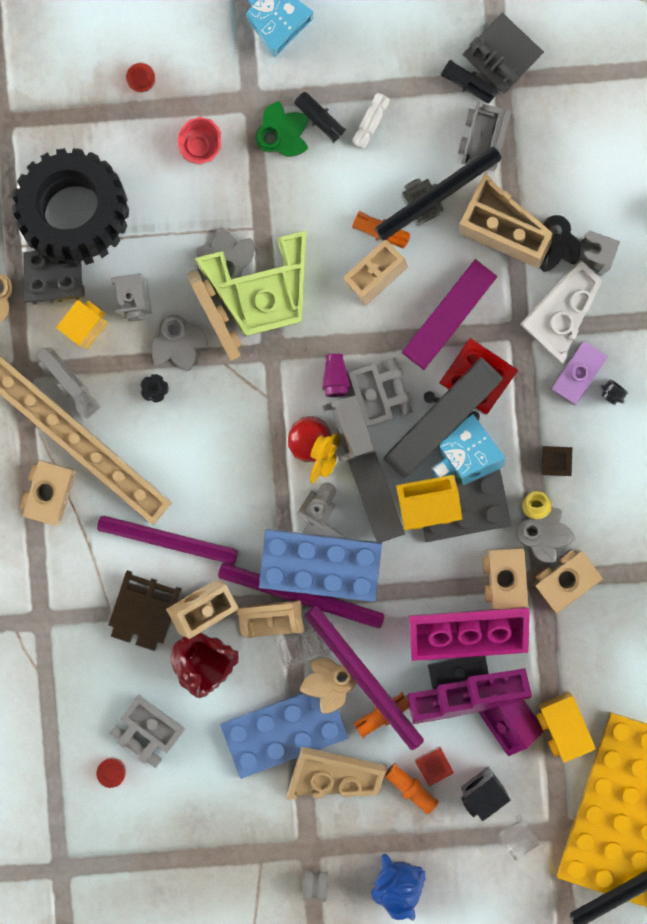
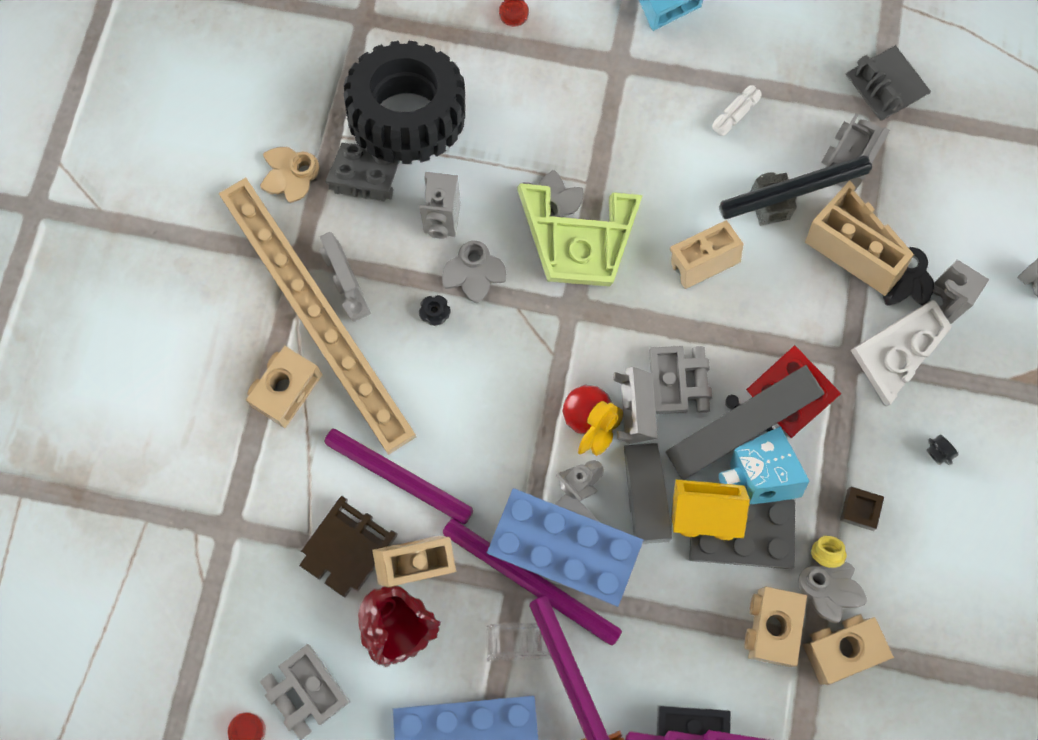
camera: 15 degrees right, 15 degrees down
(83, 323) = (380, 218): yellow piece -> none
(199, 140) = (556, 79): coral hair -> none
(215, 314) = (526, 249): tan wing -> none
(271, 619) = (489, 597): tan hinge -> none
(286, 129) = (646, 96): green plate -> none
(319, 116) = (685, 92): black axle -> none
(324, 684) = (532, 696): tan plate -> none
(335, 377) = (635, 348): magenta cone -> none
(368, 224) = (710, 208): orange axle -> none
(449, 314) = (775, 318): magenta slope -> none
(469, 82) = (846, 97): black axle -> none
(469, 633) = (720, 677): dark pink slope -> none
(579, 372) = (905, 420): lavender plate -> none

